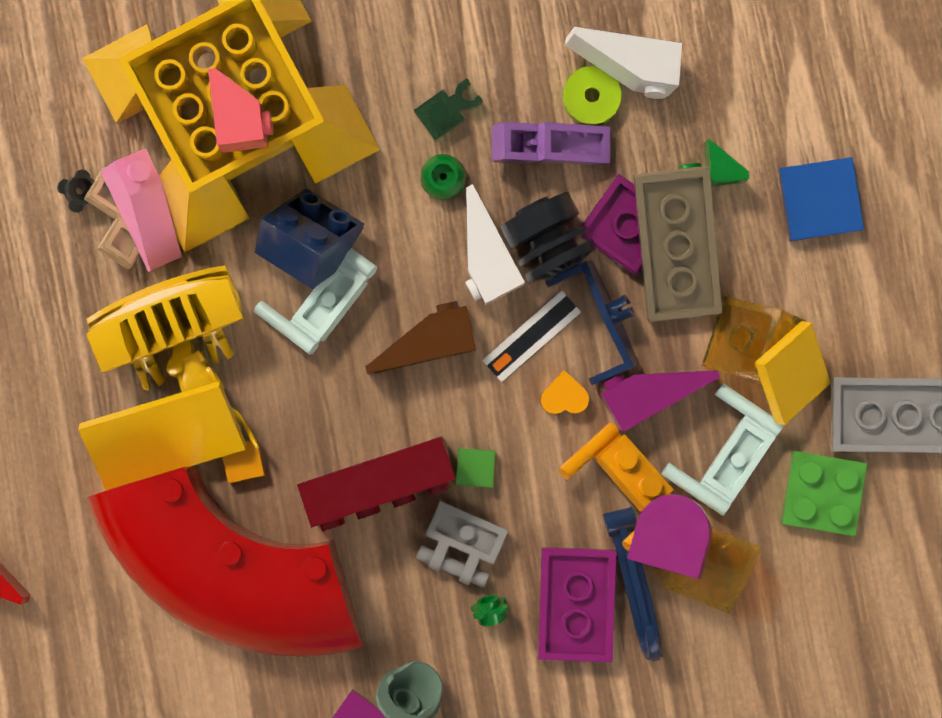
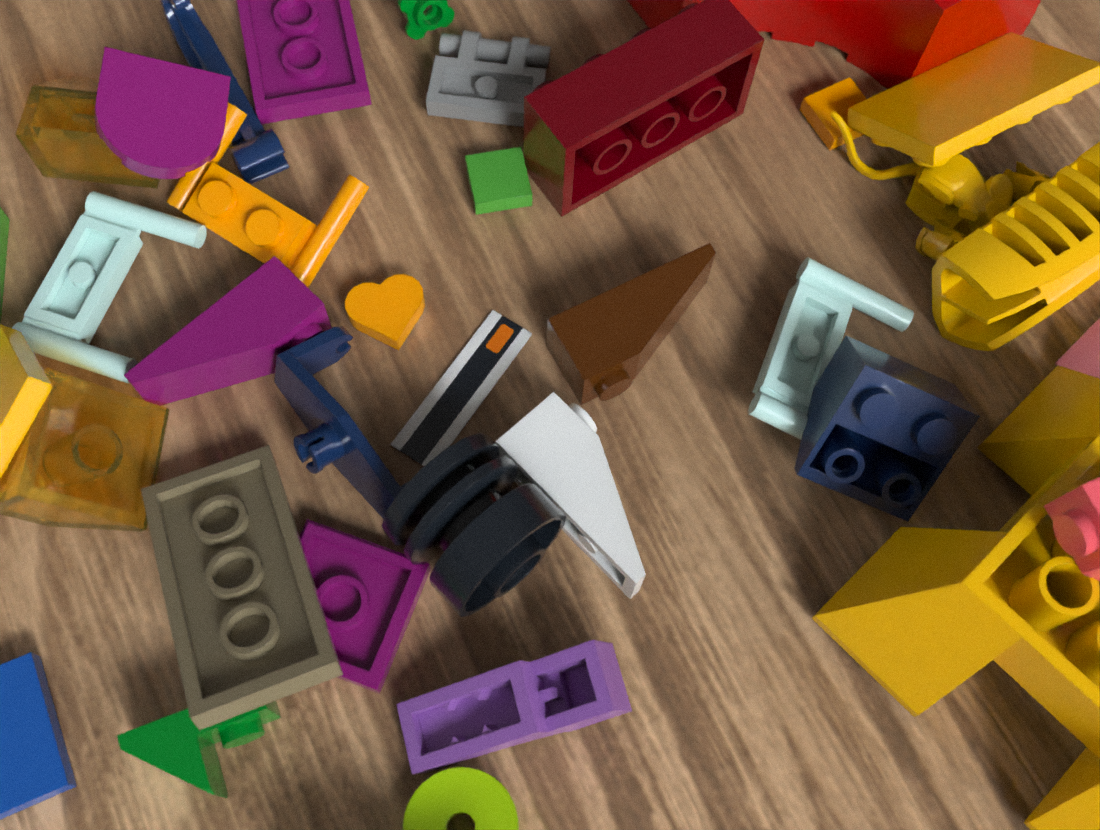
camera: 165 degrees right, 20 degrees down
(440, 188) = (682, 620): green plate -> none
(442, 112) = (725, 717): clear green plate -> none

